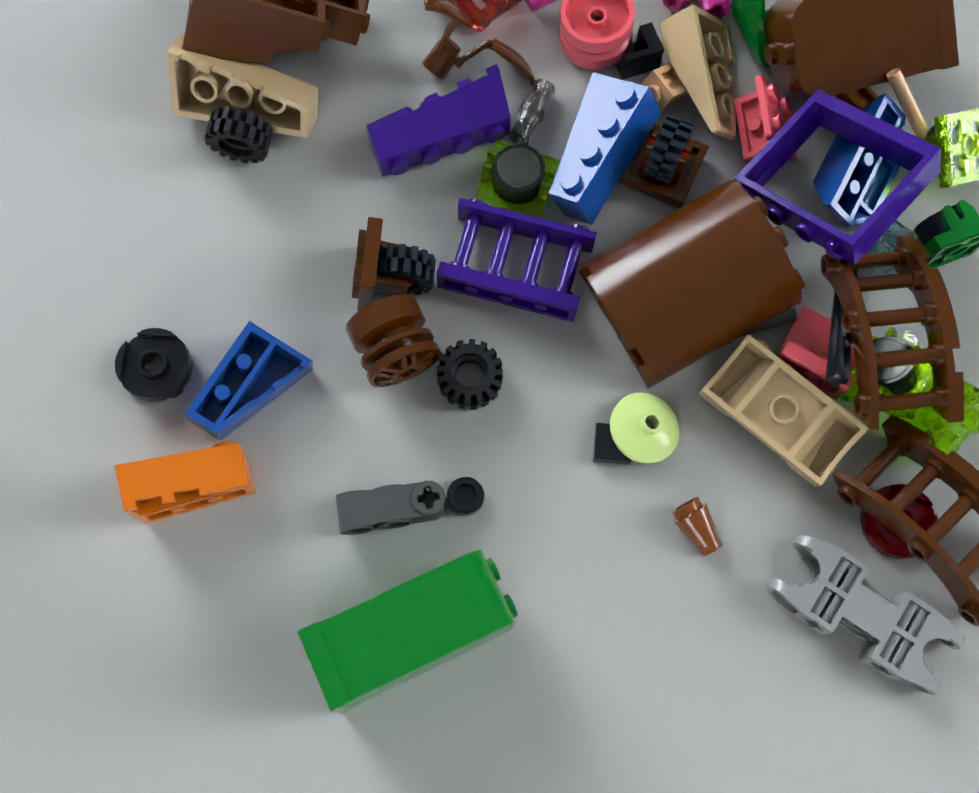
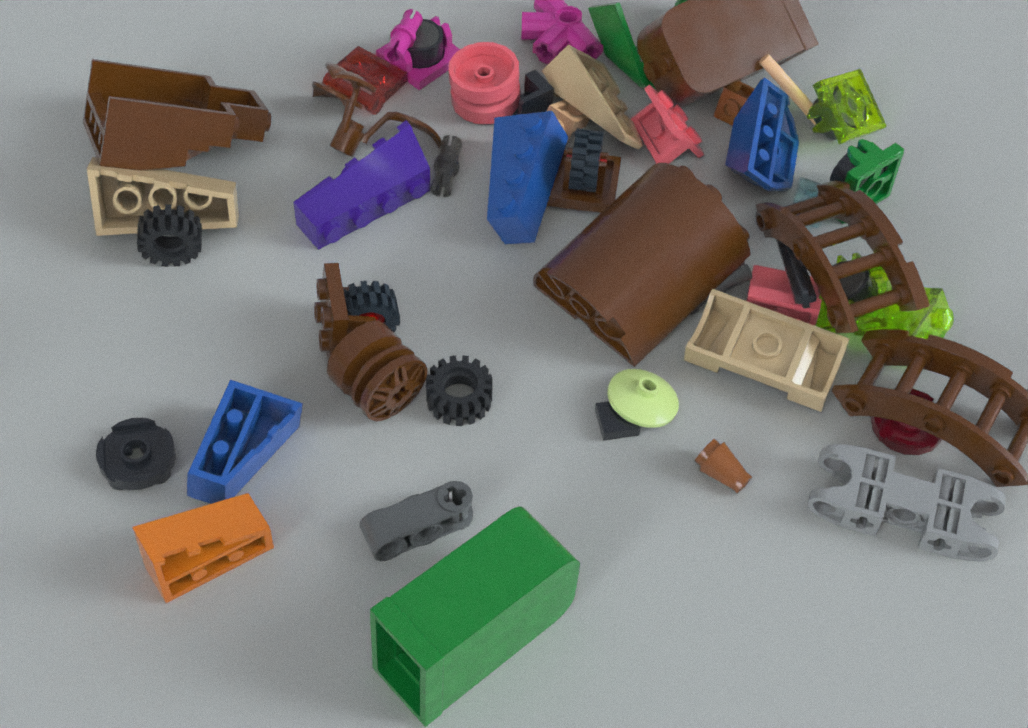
camera: 15 degrees left, 20 degrees down
(465, 496) = (489, 498): black tile -> none
(518, 177) = (451, 222): piece -> none
(524, 293) = (473, 312): dark purple fence -> none
(863, 129) = (757, 105): dark purple window -> none

